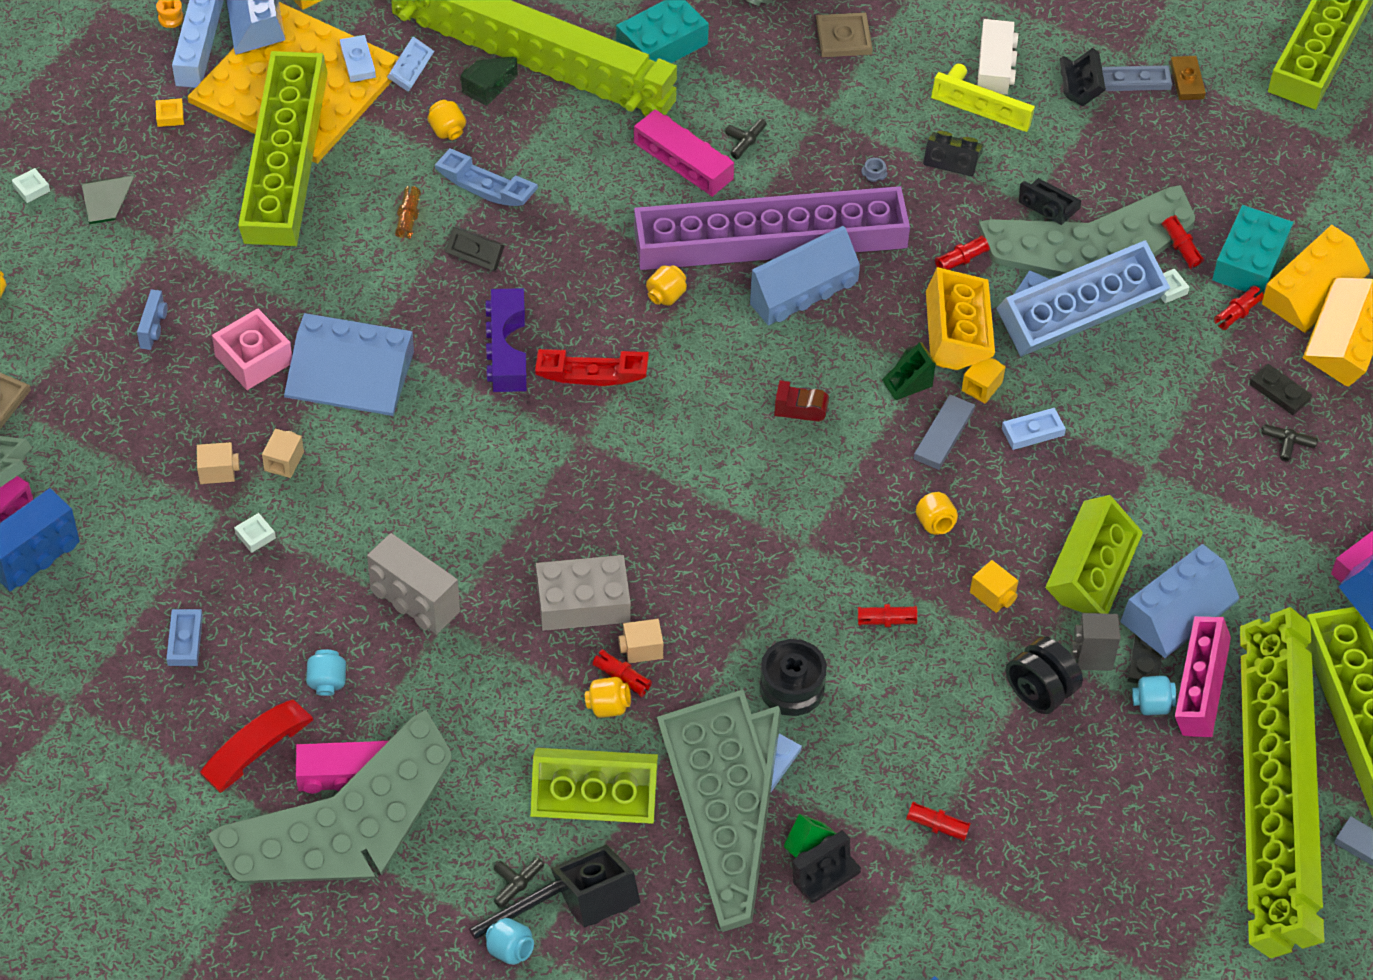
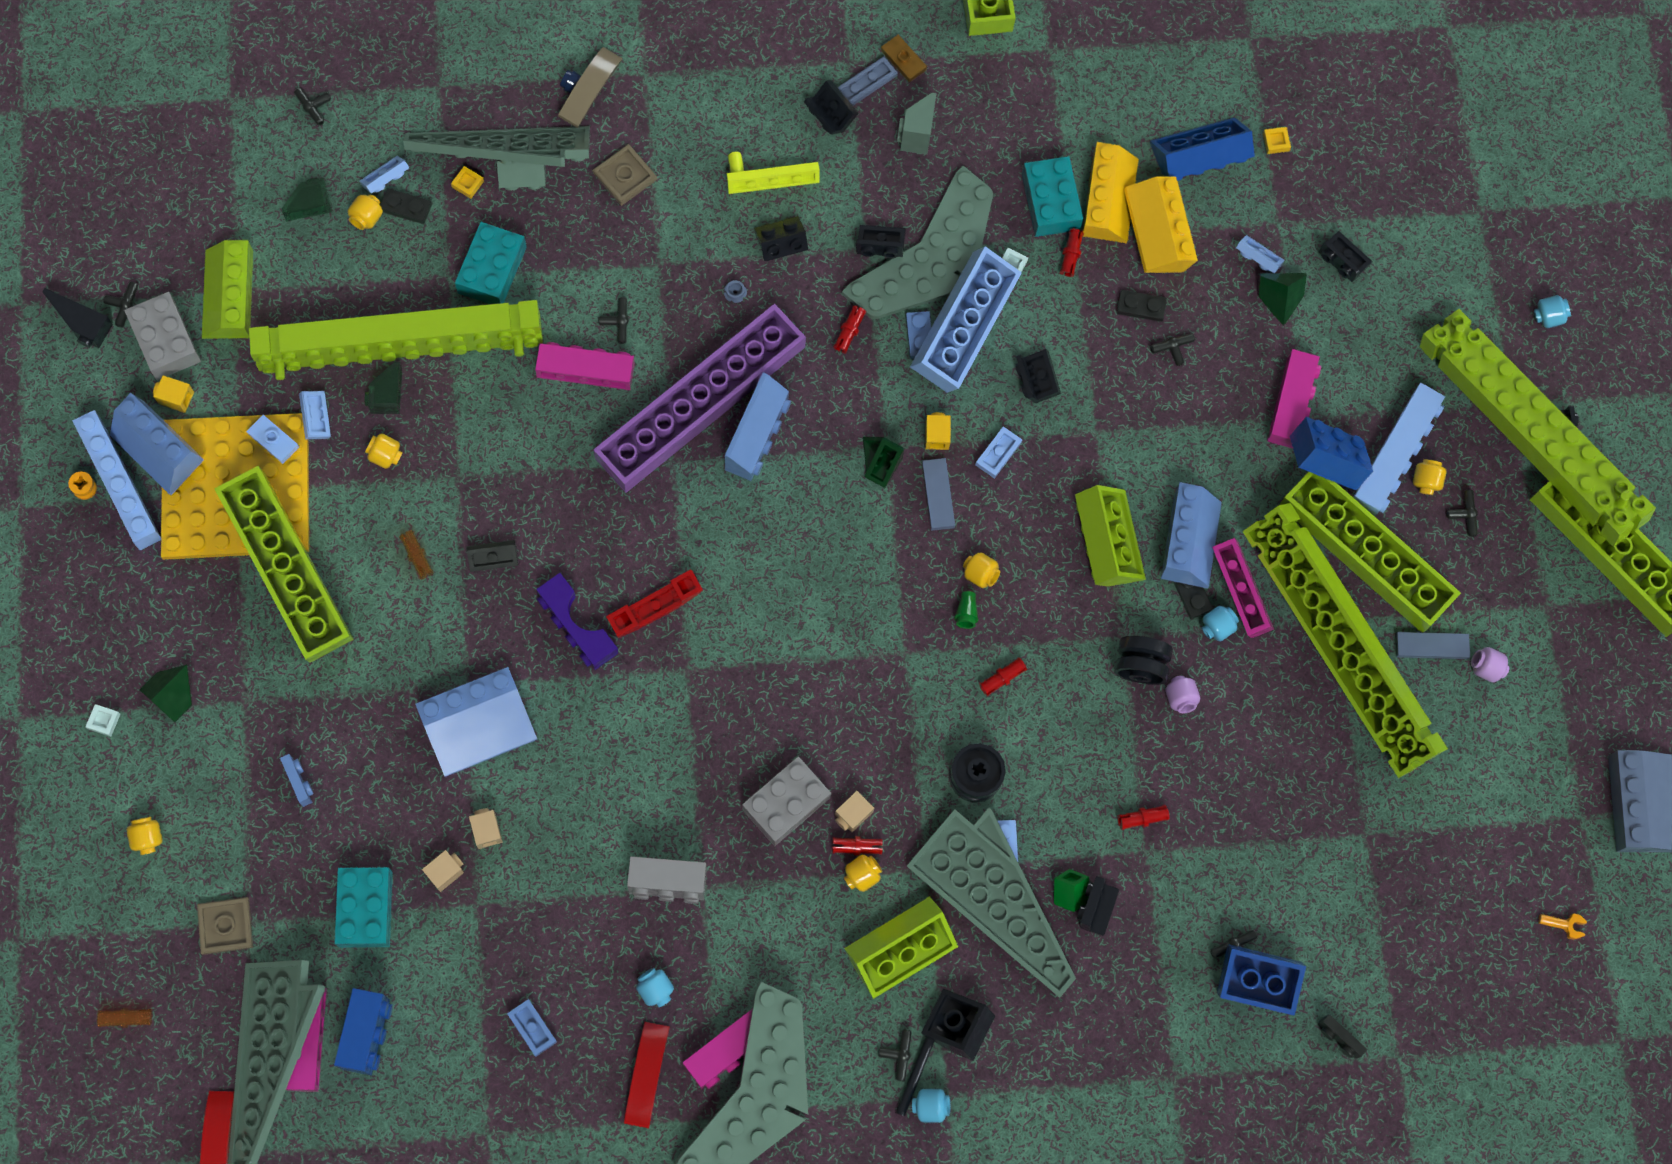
camera: 40 degrees left, 20 degrees up
(120, 449) = (363, 907): none -> teal brick
(169, 112) = (159, 581): yellow plate -> none
(252, 349) = (396, 757): bright pink brick -> none
(255, 532) = (515, 908): light aqua plate -> none
(492, 187) = (454, 489): medium blue slope -> none
(666, 285) = (658, 497): yellow head -> none
(800, 403) = (824, 537): dark red leg -> none
(893, 541) = (966, 614): none -> green cone
(959, 319) = (892, 395): yellow slope -> none
(994, 586) = (1060, 605): yellow brick -> none
(997, 56) = (755, 127): white brick -> none
(1065, 735) = (1182, 694): none -> lavender head
(1096, 641) = (1159, 609): dark grey brick -> none
(1122, 387) = (1038, 376): none -> black bracket
(1158, 126) = (916, 127): none -> sand green slope
(1182, 241) = (998, 219): red pin -> none

